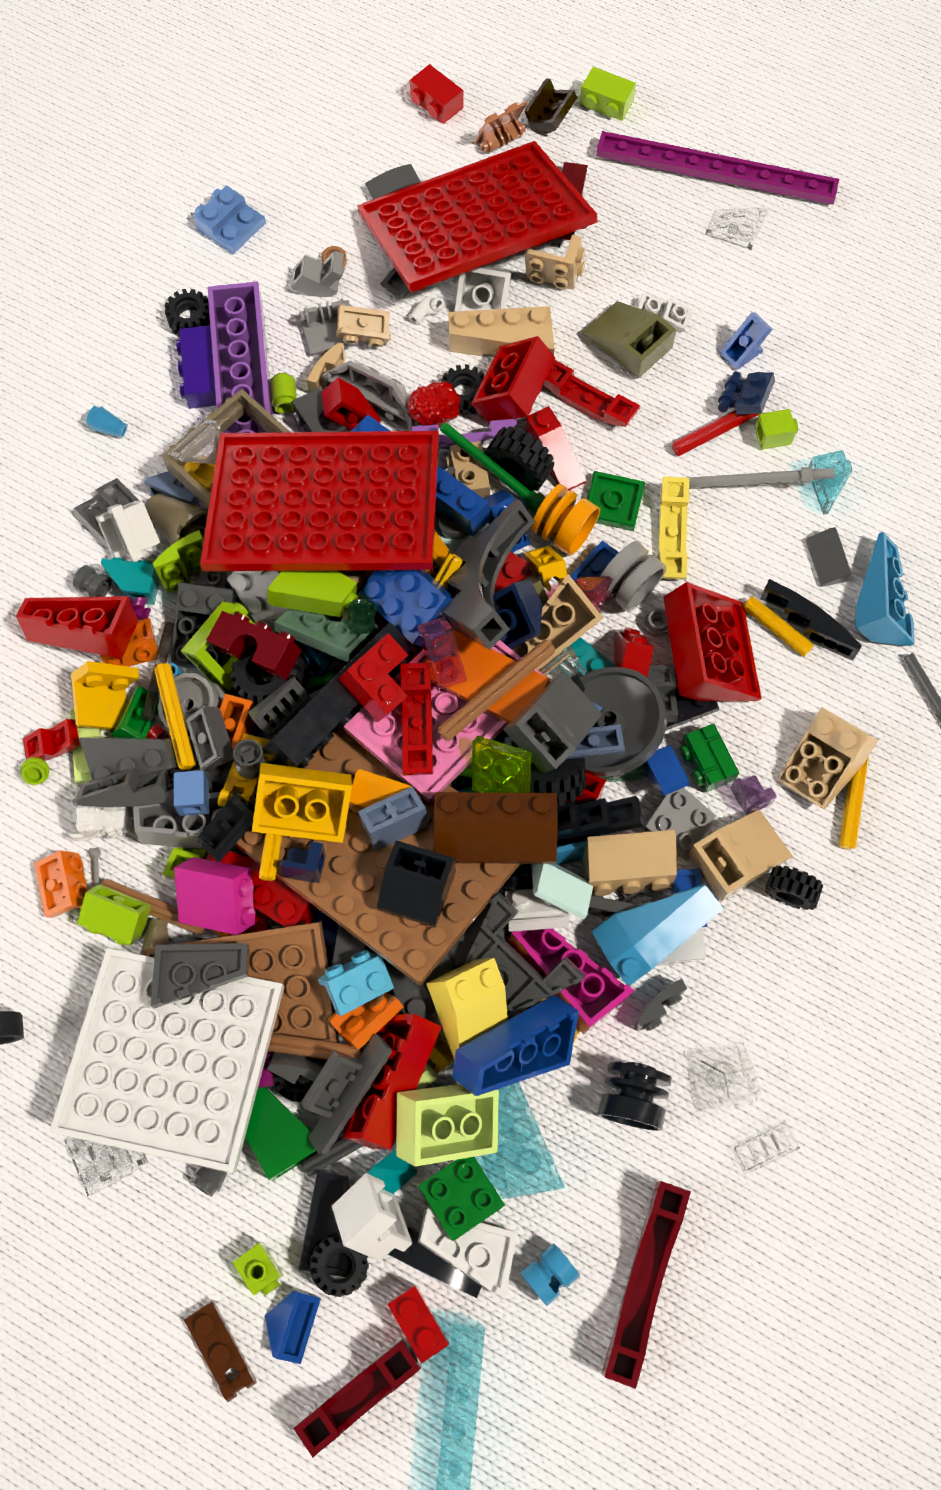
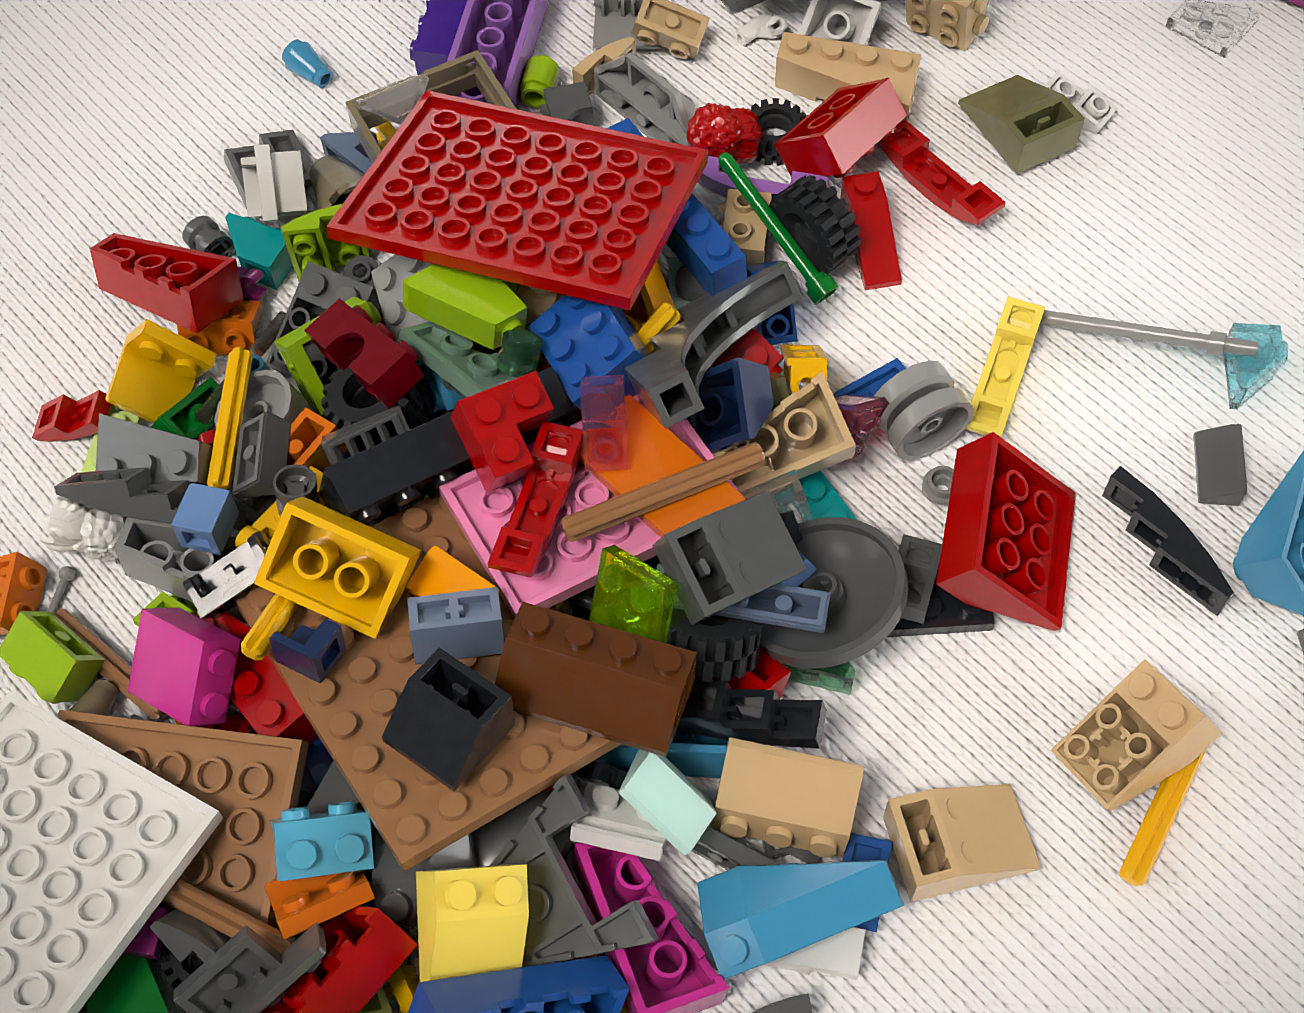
camera: 20 degrees right, 10 degrees down
(34, 770) = (36, 447): lime plate -> none
(195, 968) = (107, 751): dark grey wing -> none
(346, 404) = (608, 101): red slope -> none
(561, 517) = (852, 316): light orange wheel -> none
(617, 499) = (931, 315): green tile -> none
(632, 650) = (891, 509): red slope -> none
(665, 771) = (882, 683): blue slope -> none
(683, 814) = (892, 760): light grey hinge -> none
(709, 758) = (956, 689): green brick -> none
(710, 432) = (1108, 259): red axle -> none
(746, 341) = (1180, 160): slope -> none
(752, 795) = (1006, 760): clear purple panel -> none
(753, 392) = (1160, 225): dark blue plate -> none
(776, 429) = (1191, 279): lime brick -> none
(778, 626) = (1117, 538): yellow axle -> none
(794, 887) = (1026, 912): black tyre -> none

